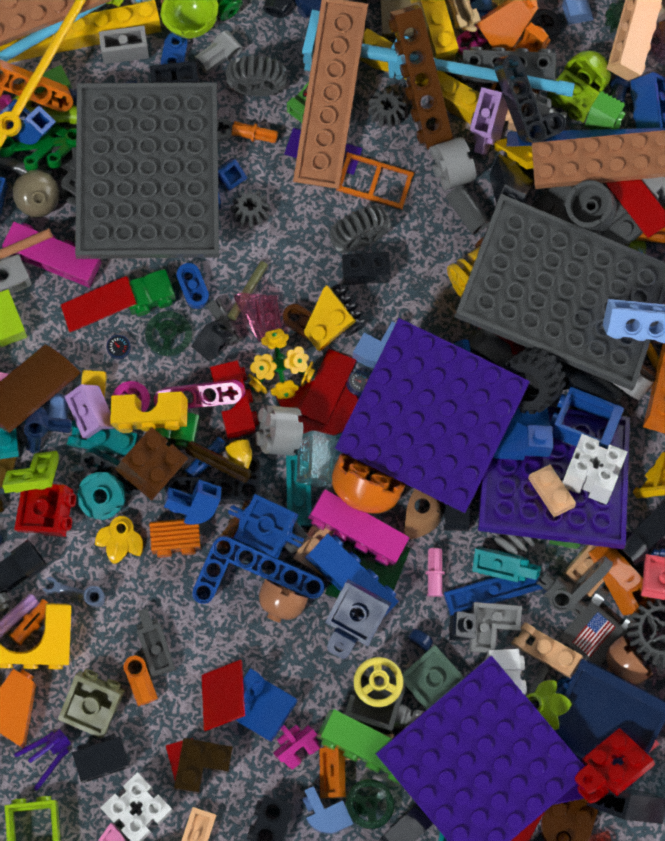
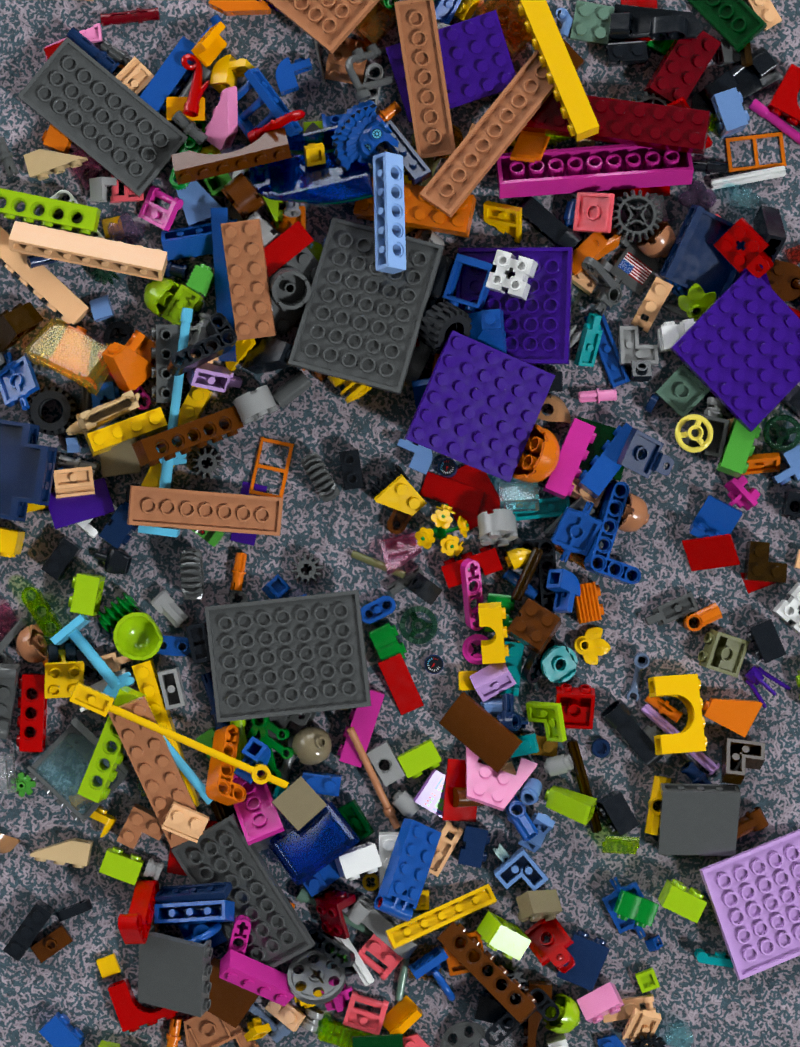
camera: 90 degrees left, 15 degrees up
(552, 490) = (531, 307): light nougat plate -> none

